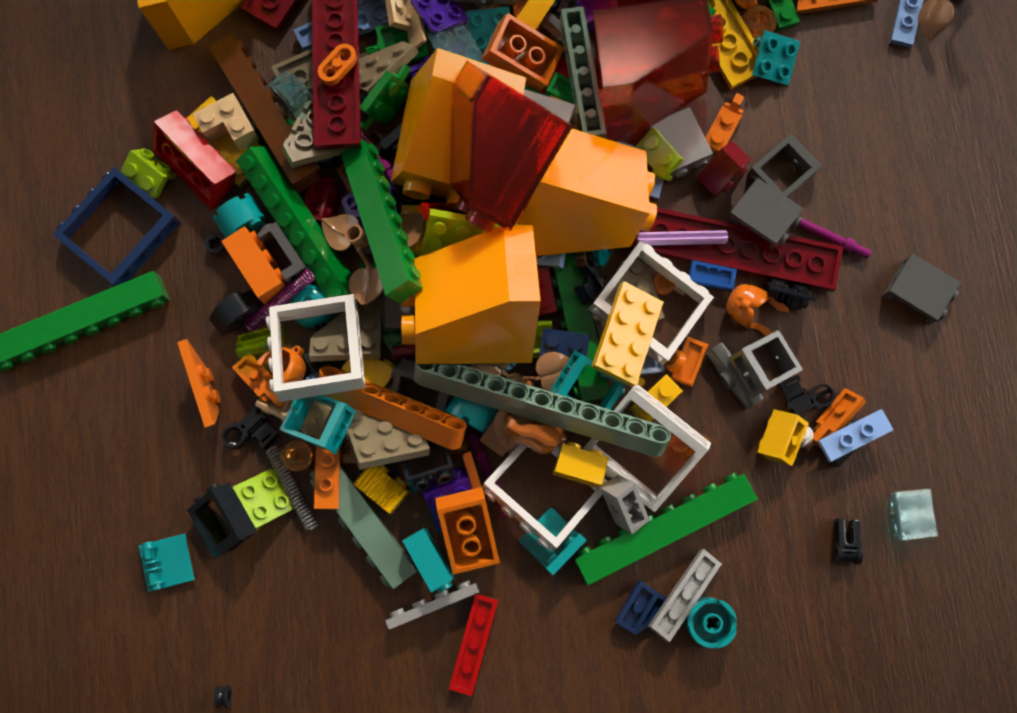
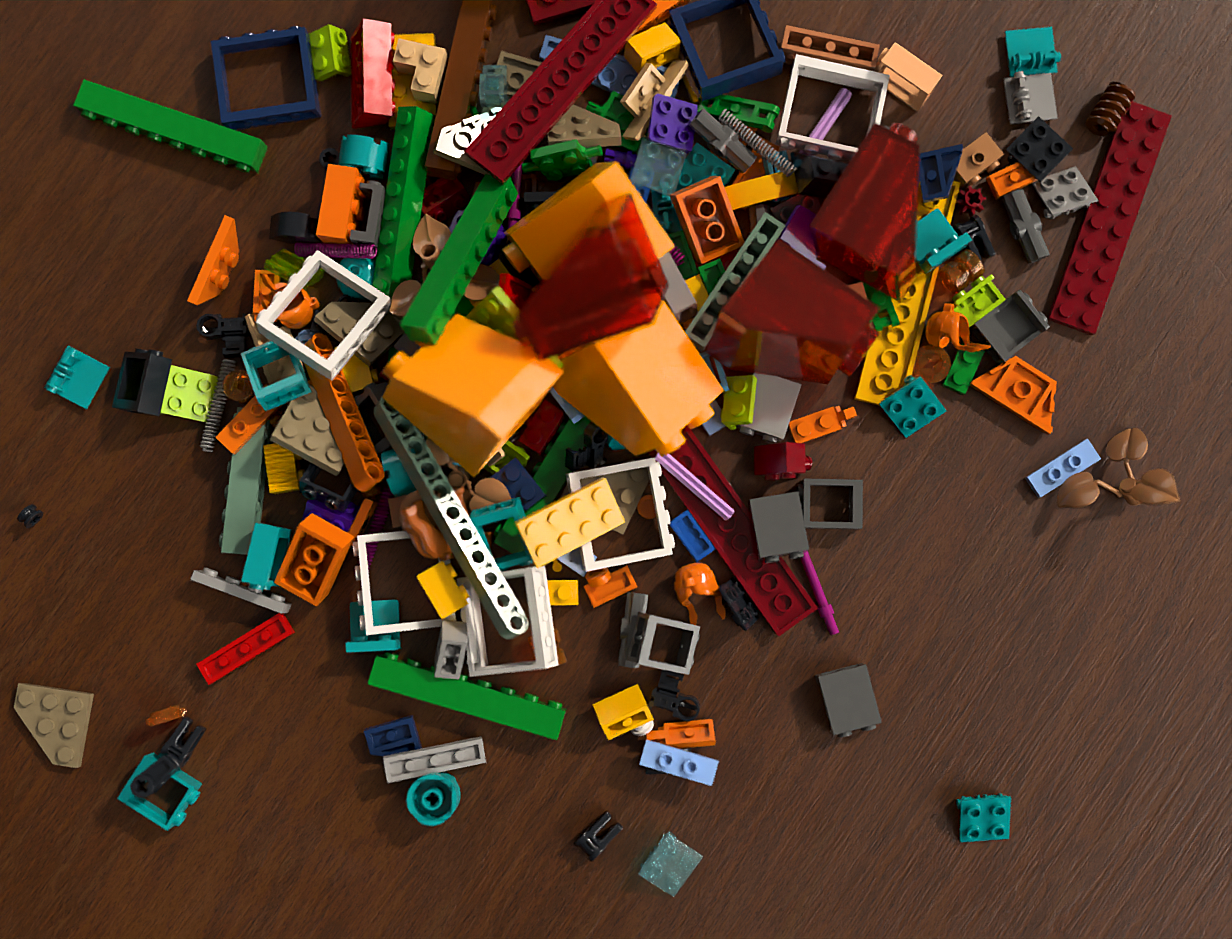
camera: 45 degrees right, 5 degrees up
(335, 64) = (541, 98): orange plate -> none

